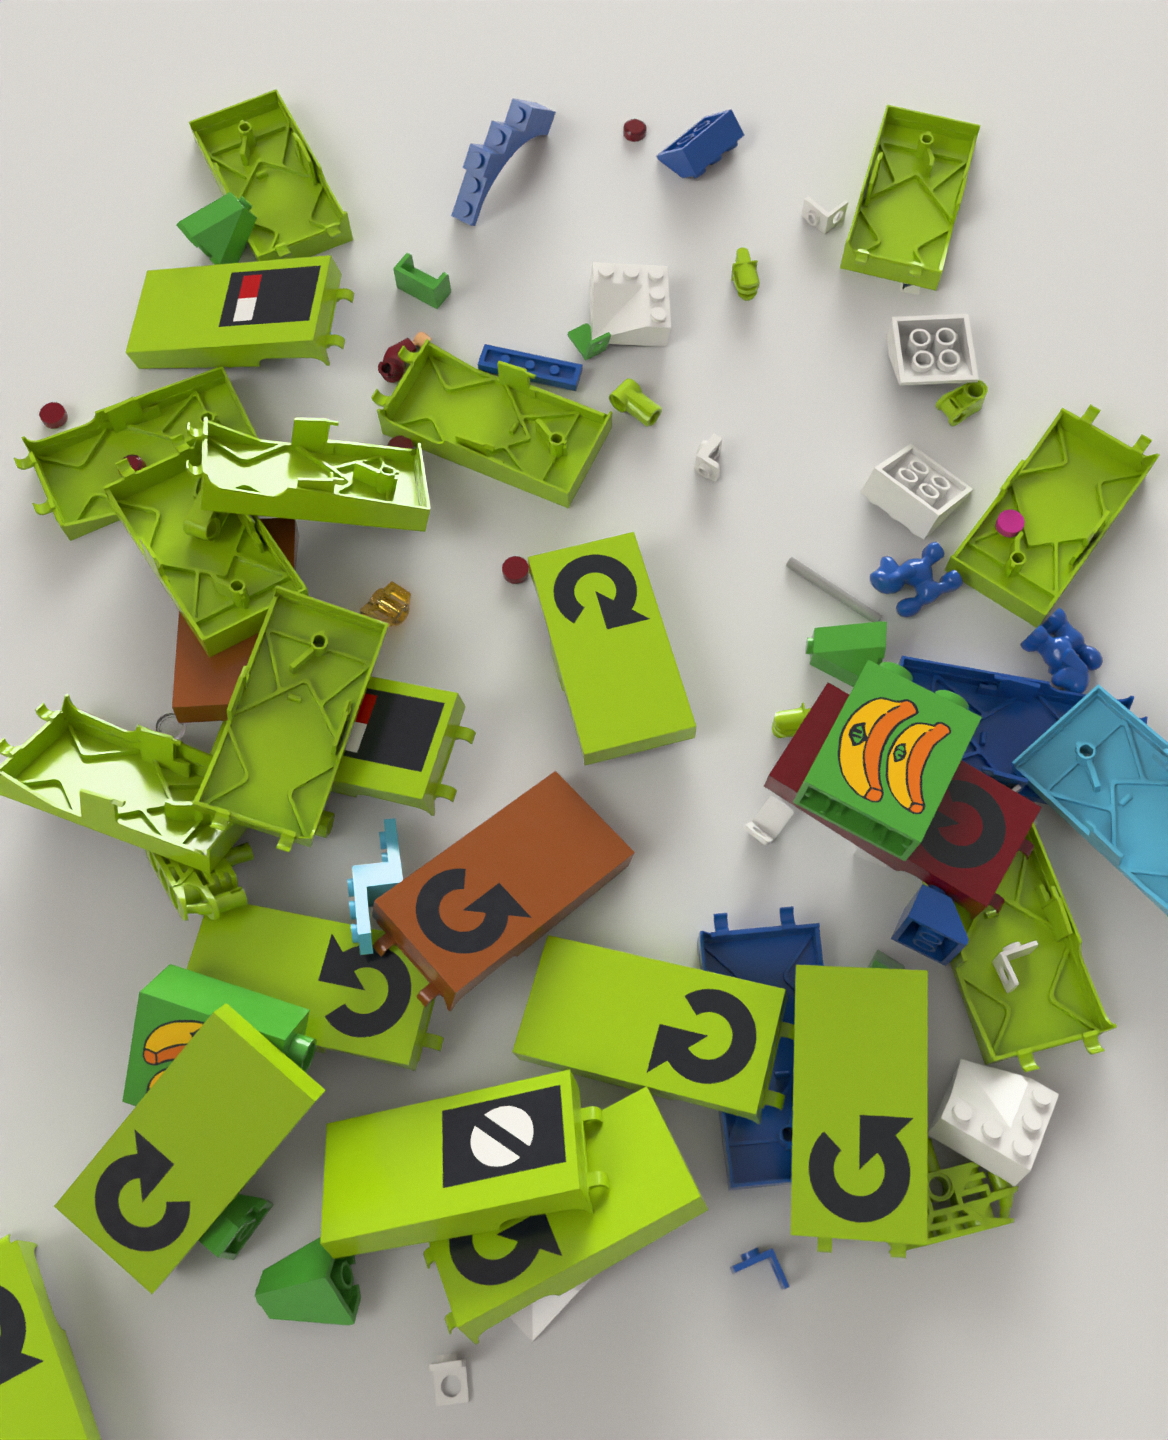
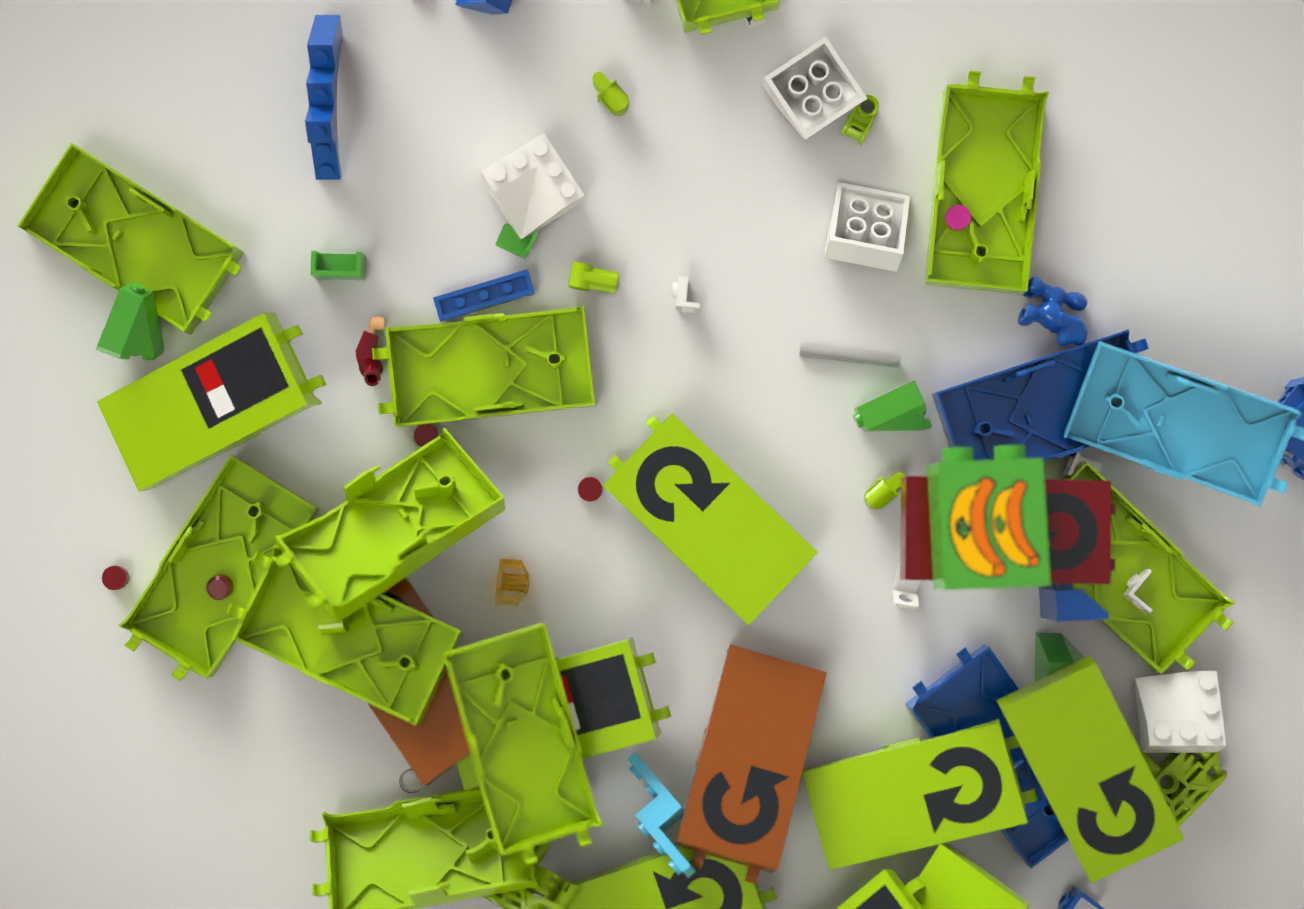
camera: 35 degrees left, 20 degrees up
(917, 573) = (907, 308): blue animal -> none

